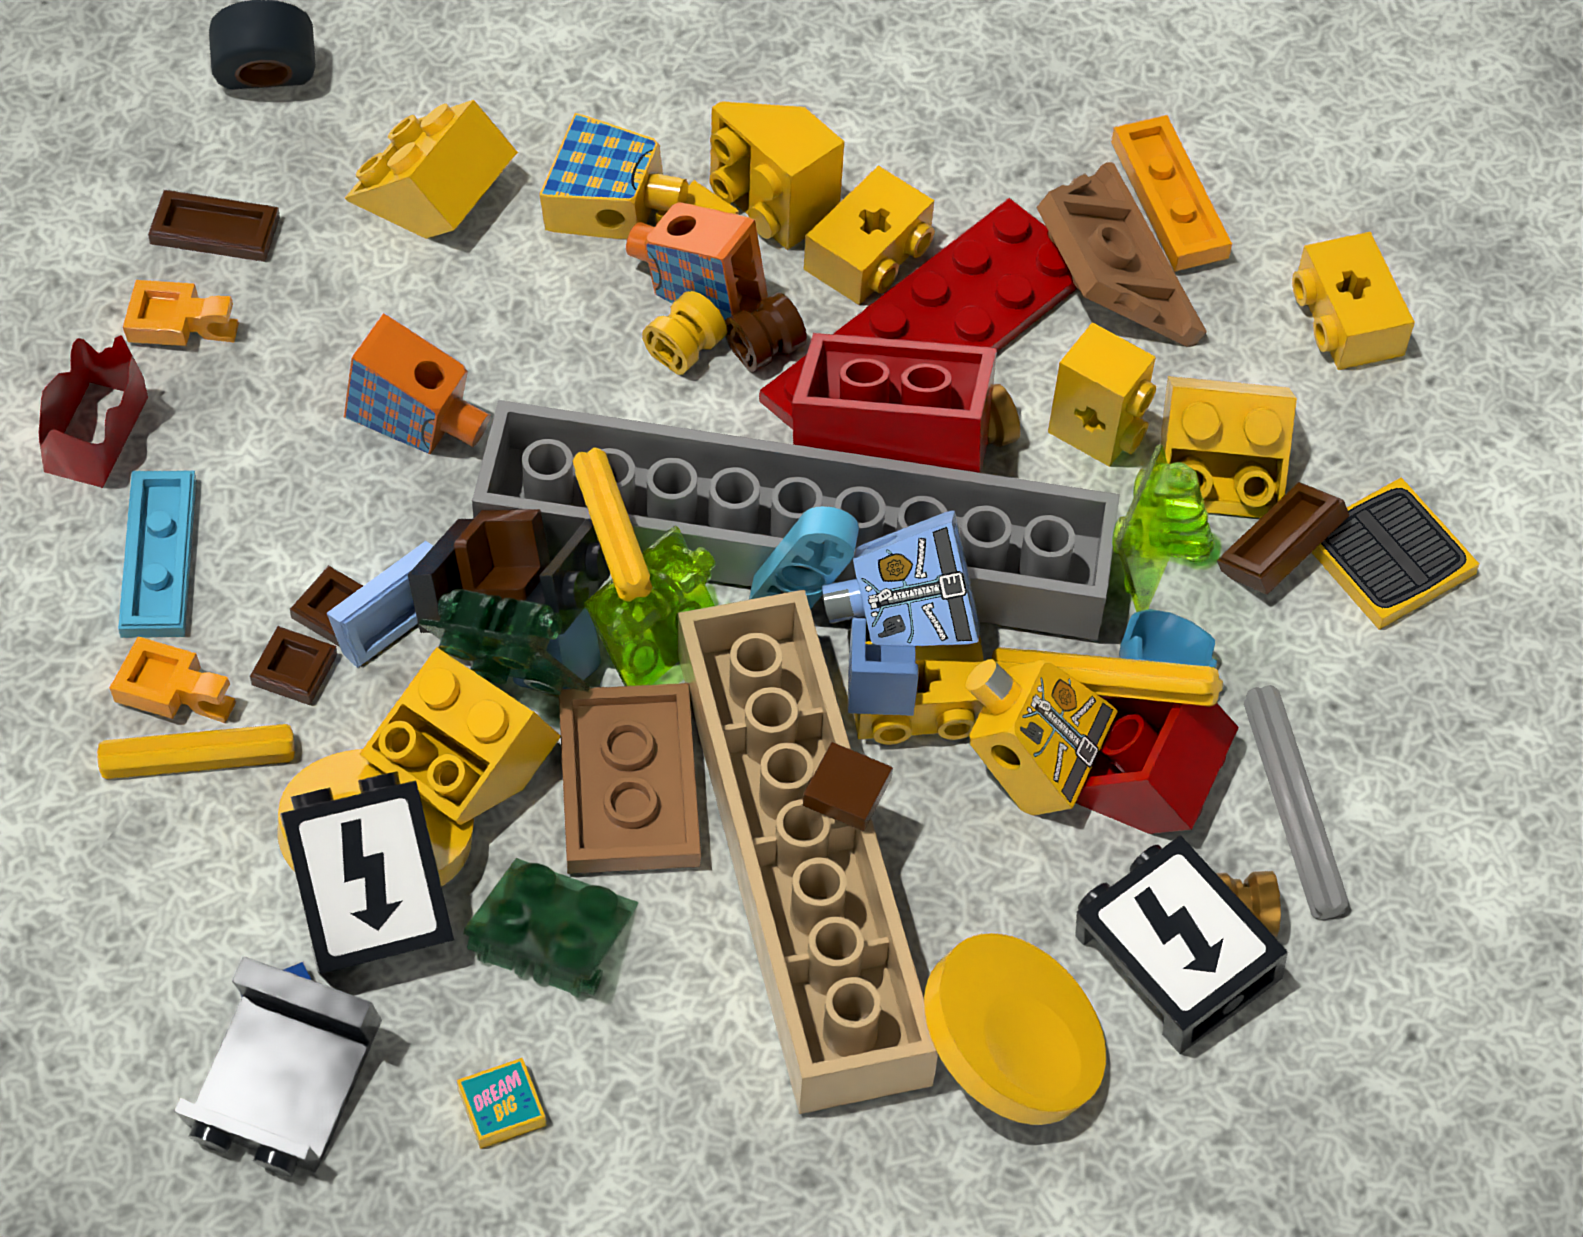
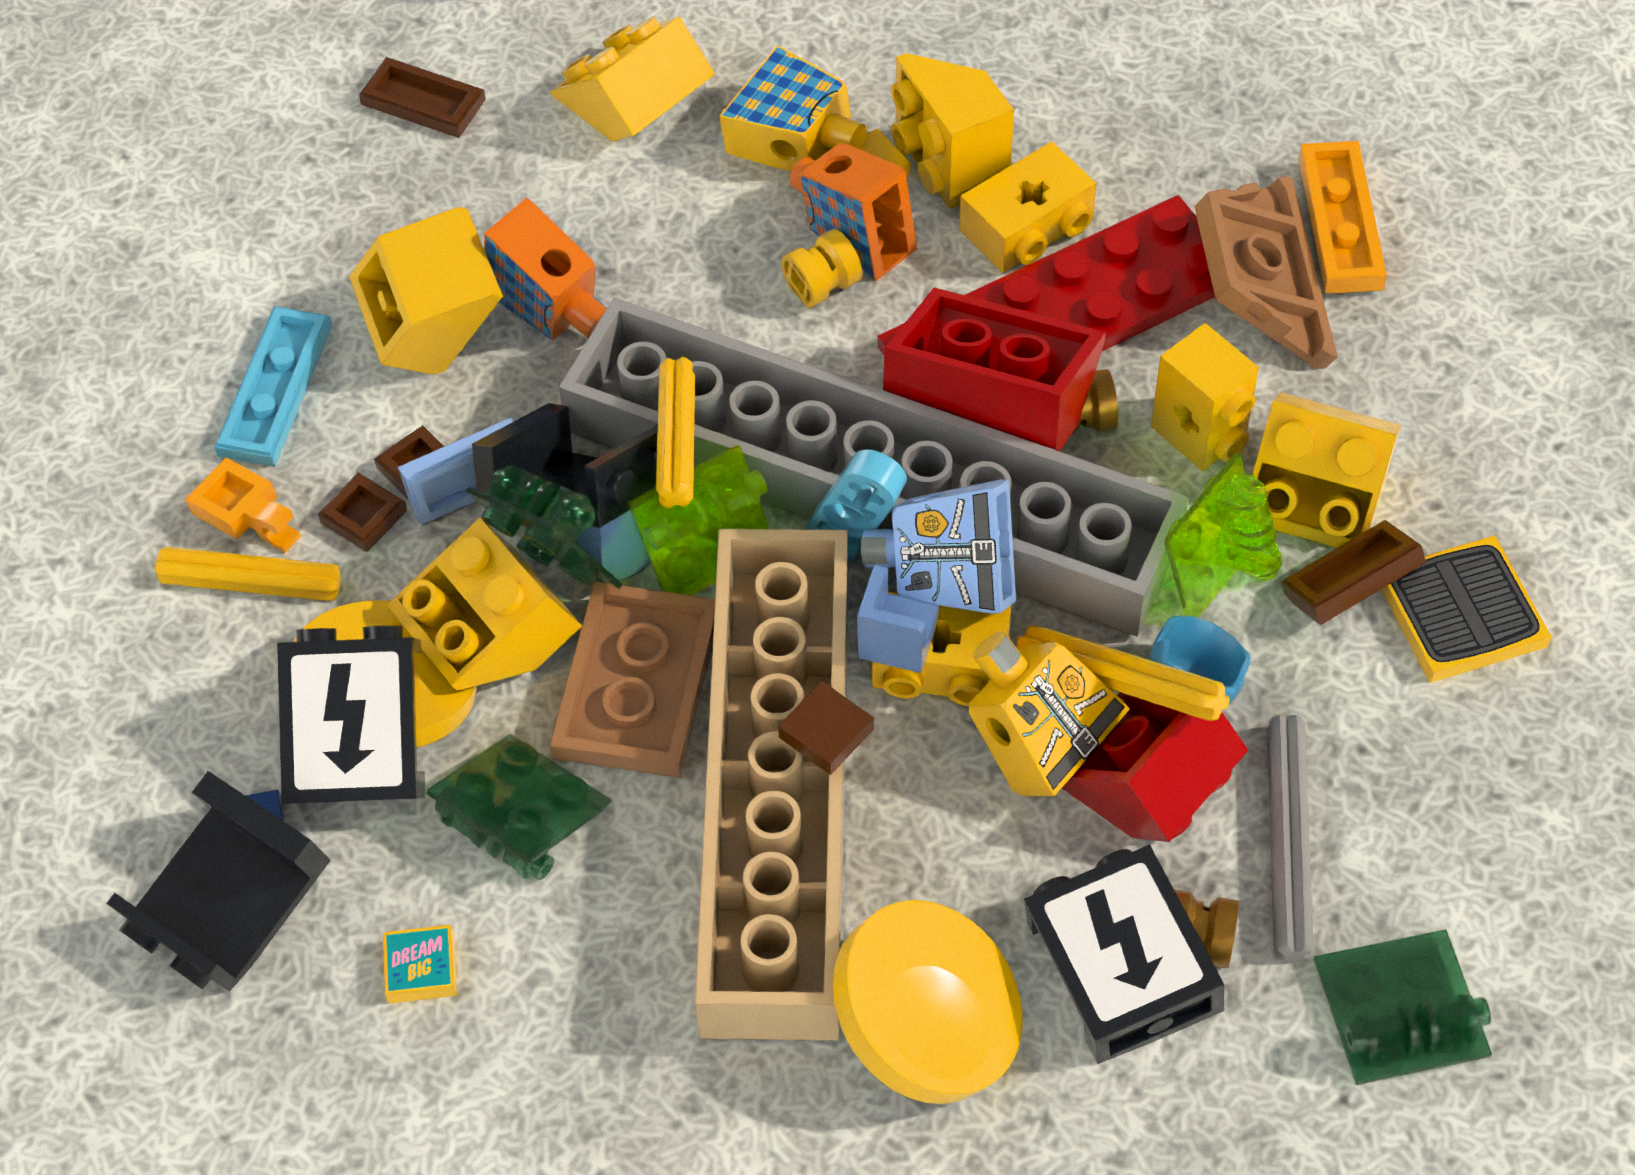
camera: 20 degrees right, 0 degrees up
(71, 456) = (230, 226): red piece -> none
(171, 310) = (354, 166): light orange plate -> none
(297, 427) = (425, 291): none -> yellow slope
(503, 553) = (569, 438): reddish brown panel -> none
(765, 332) = (898, 280): reddish brown wheel -> none
(1352, 301) = (1494, 352): yellow brick -> none
(1444, 938) = (1403, 1007): none -> clear green hinge

